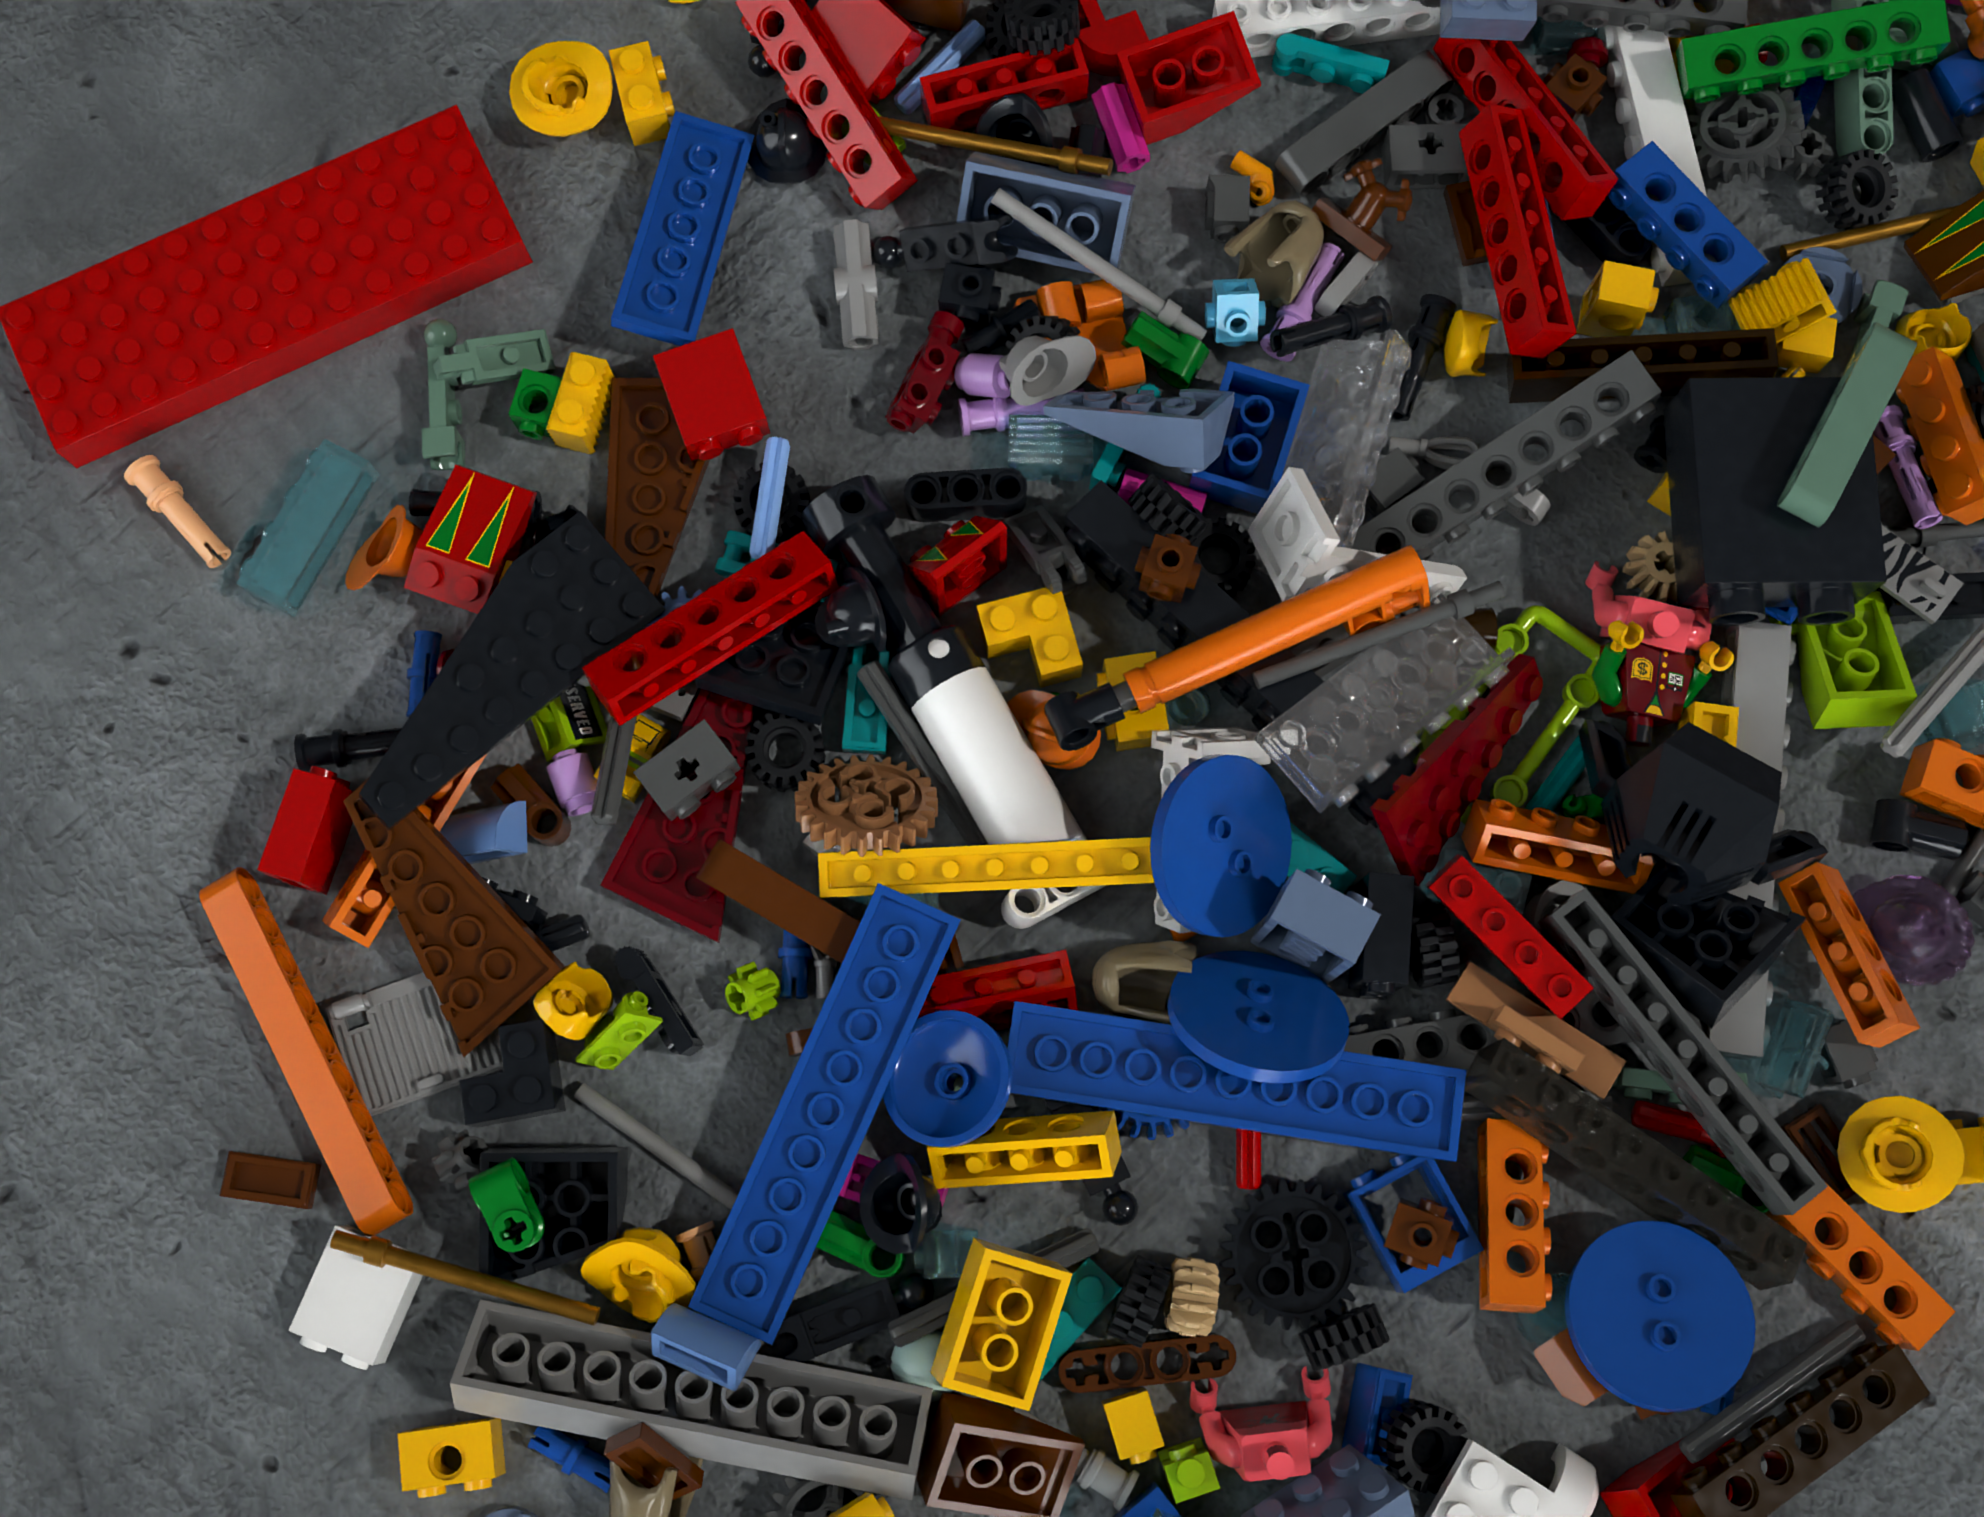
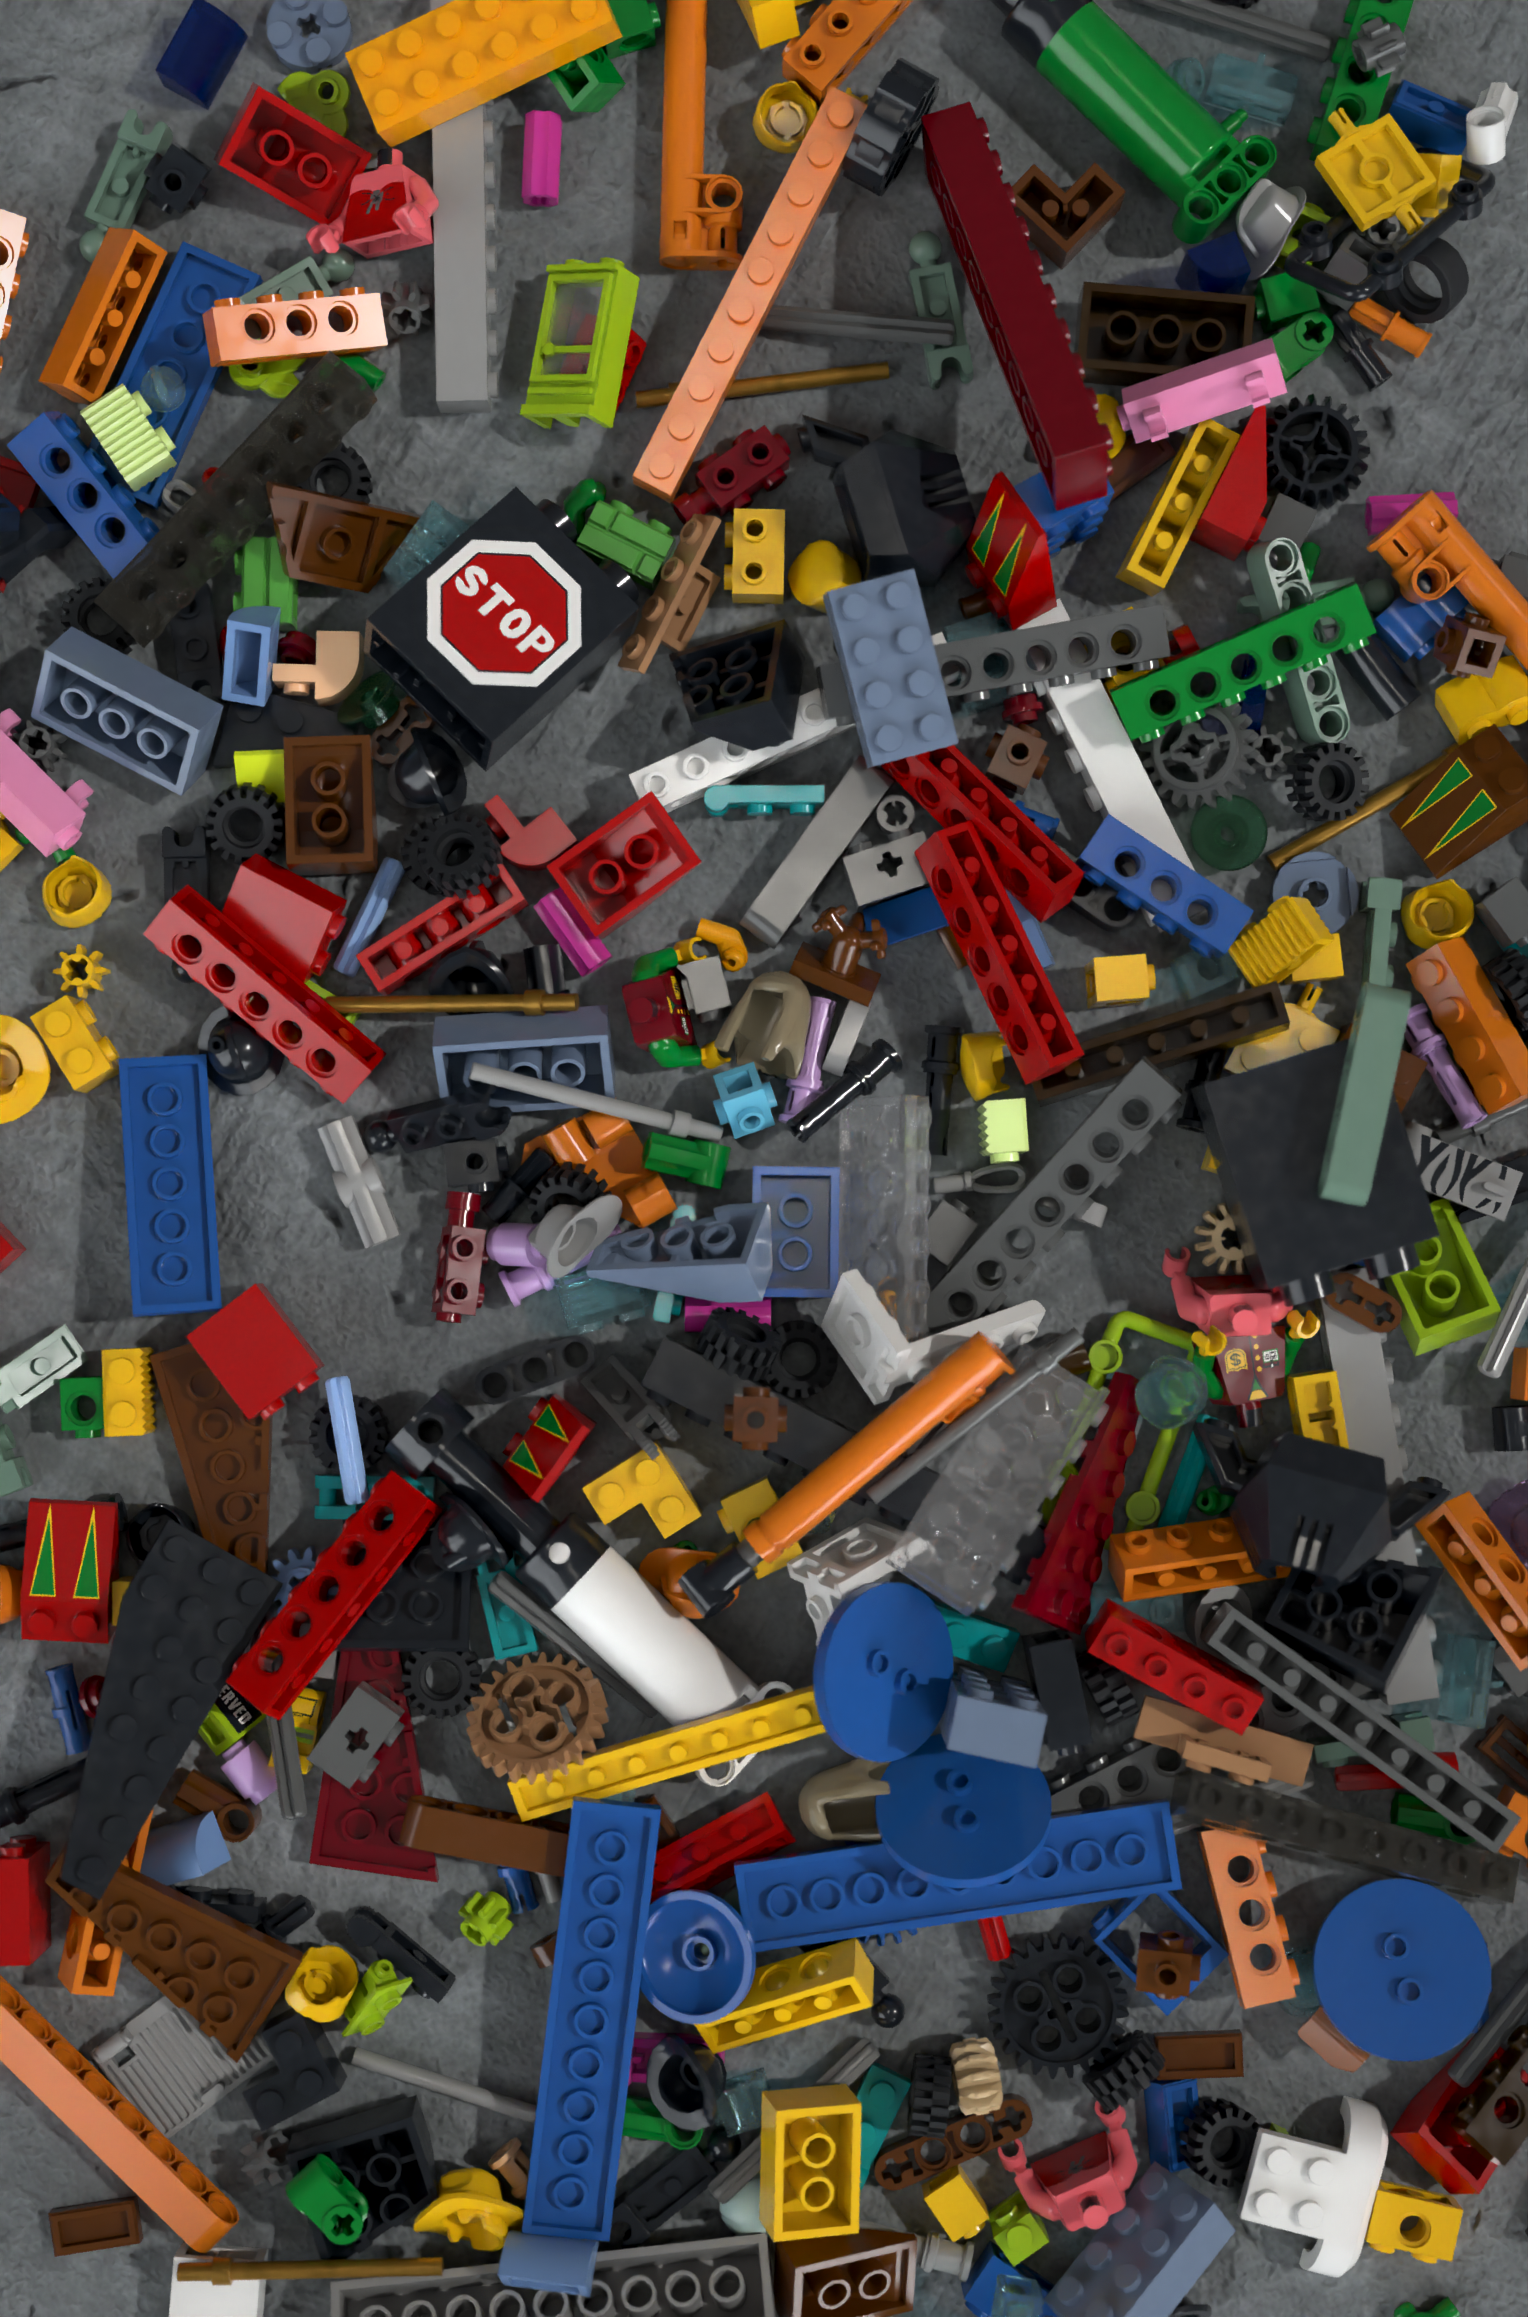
camera: 15 degrees left, 10 degrees up
(668, 35) = (71, 975): none -> yellow gear
(1181, 216) = (660, 1010): none -> torso
(1423, 1354) = (1200, 2054): none -> reddish brown tile
(1437, 202) = (907, 916): none -> blue slope
(1472, 398) = (1003, 1129): none -> yellowish green brick
(1571, 682) = (1171, 1392): none -> clear light blue hair
(1762, 200) = (1243, 819): none -> clear green piece
(1778, 653) = (1366, 1293): none -> reddish brown beam

